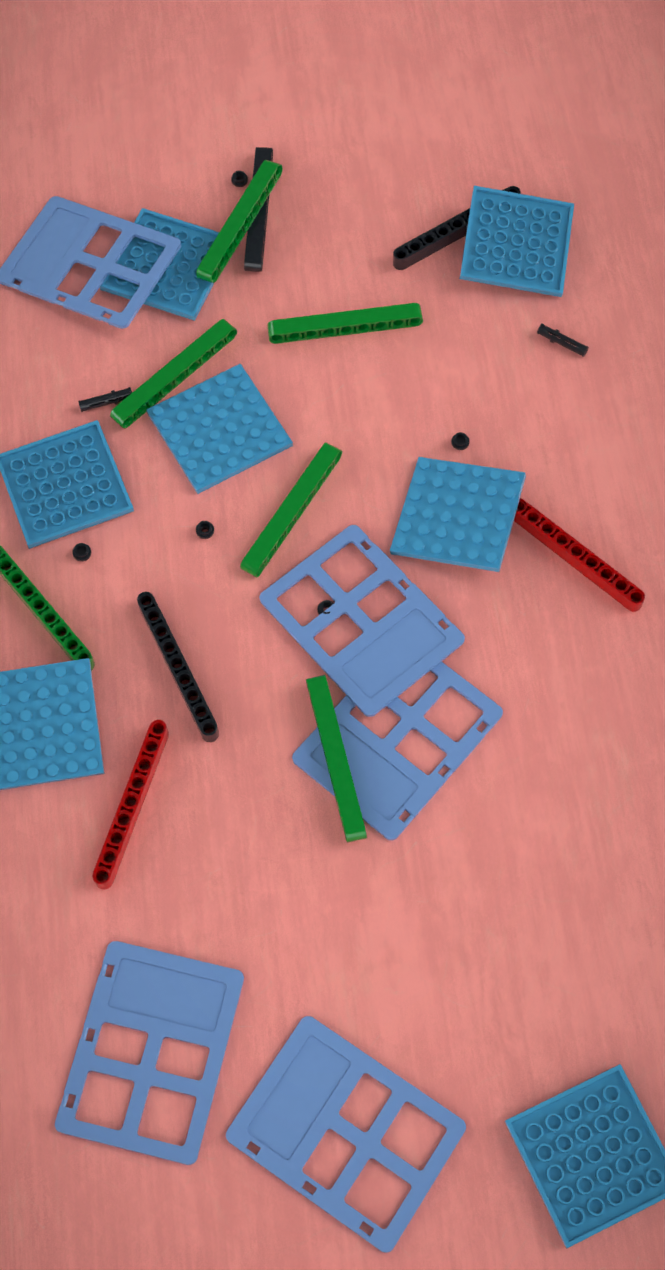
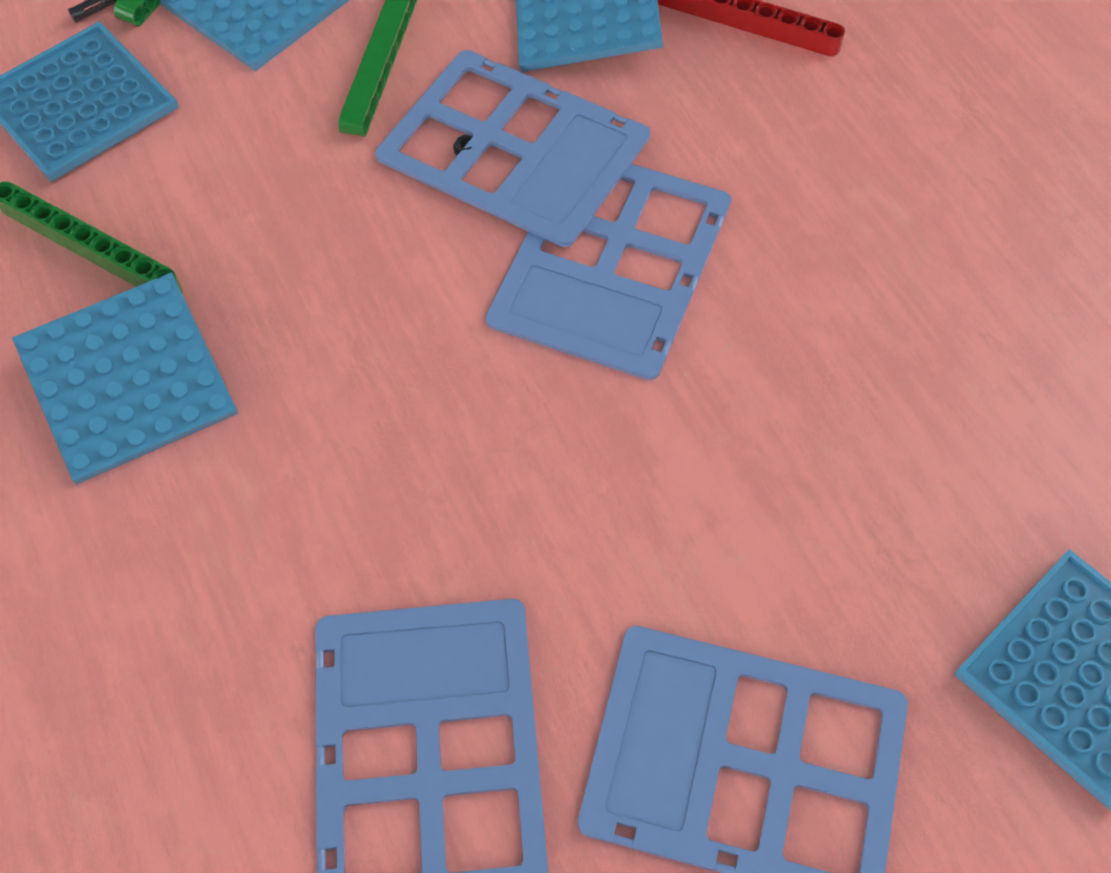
camera: 20 degrees left, 5 degrees down
(82, 552) = (123, 166): black plate -> none
(130, 812) = (287, 446): red beam -> none
(181, 673) = (298, 258): black beam -> none
(204, 525) = (278, 102): black plate -> none
(336, 759) = (547, 303): green beam -> none

